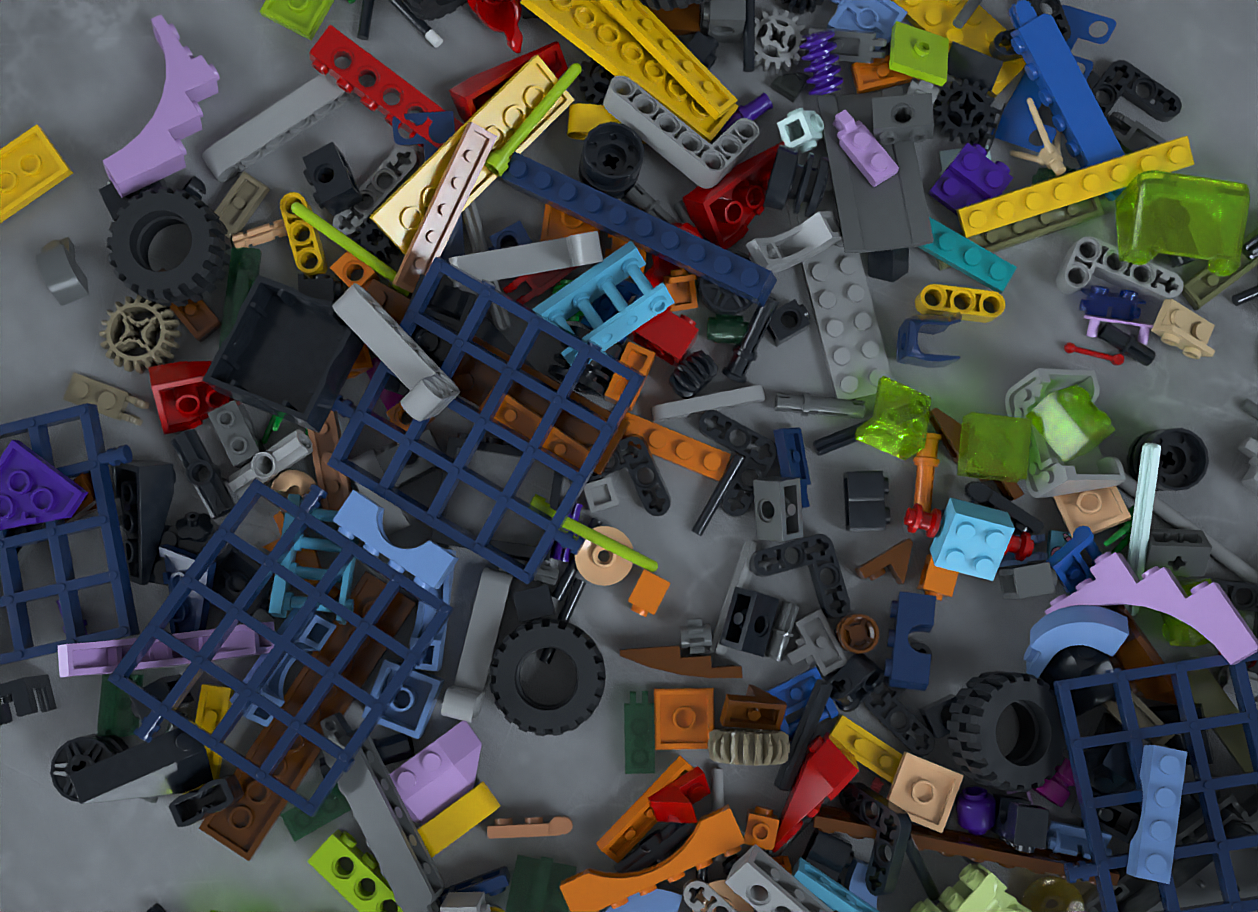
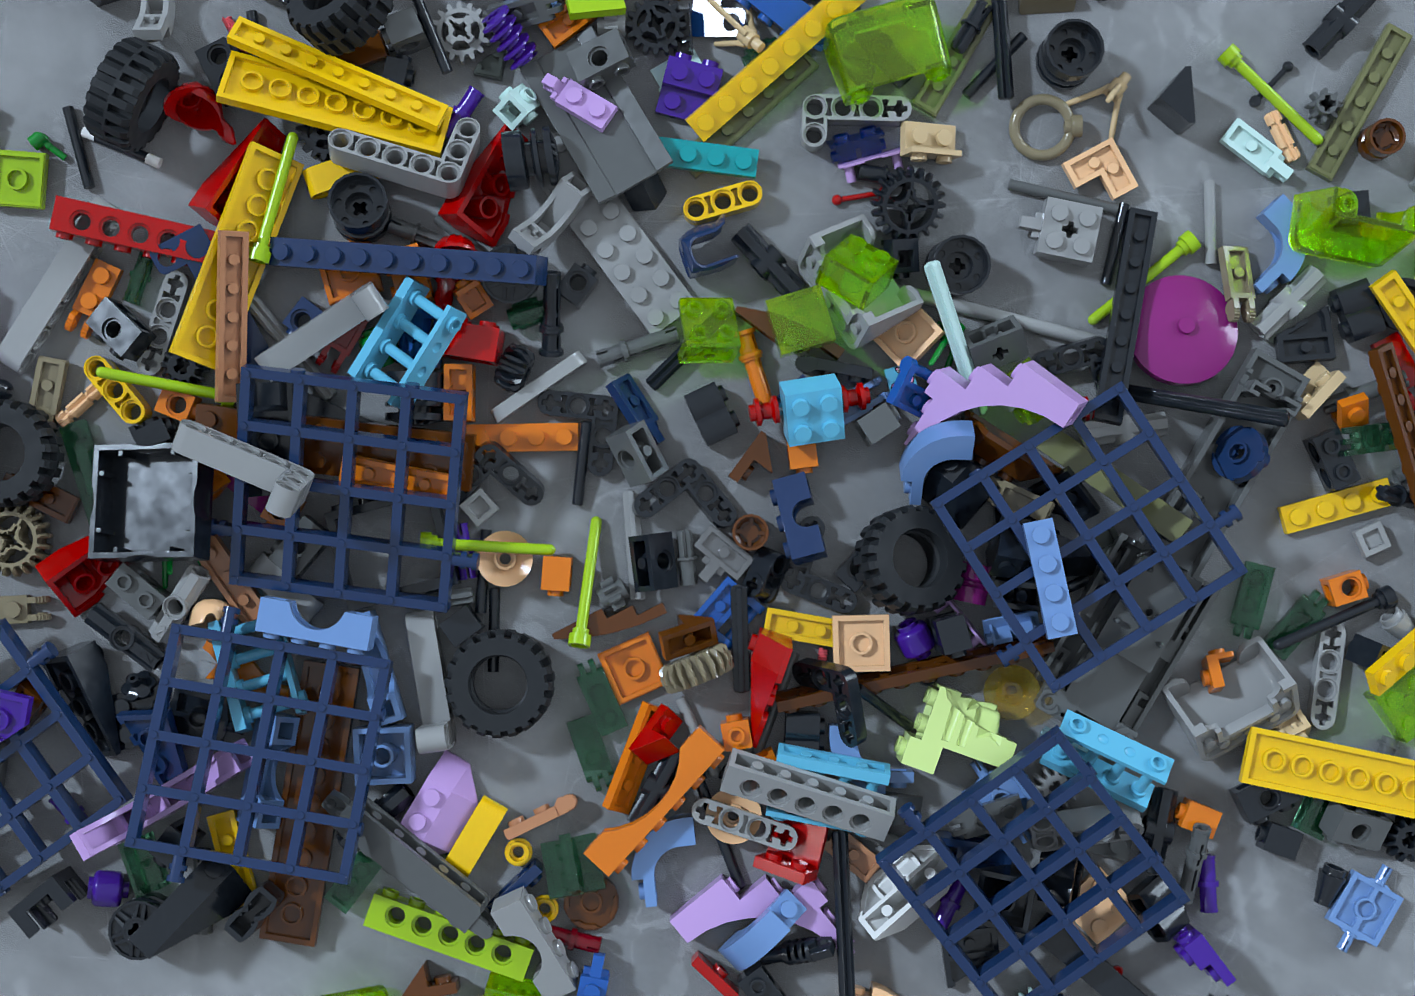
camera: 20 degrees left, 5 degrees up
(73, 713) = (107, 888): none -> dark purple head
(333, 127) = (99, 283): none -> orange hinge
(370, 141) = (139, 278): none -> clear green pin
(488, 862) = (518, 860): none -> yellow plate
(607, 782) = (591, 750): none -> clear green hinge
(648, 664) = (580, 635): none -> lime piece
(979, 376) = (767, 261): none -> black piece
(1123, 423) = (908, 253): none -> black brick
(1146, 368) = (907, 215): none -> black gear

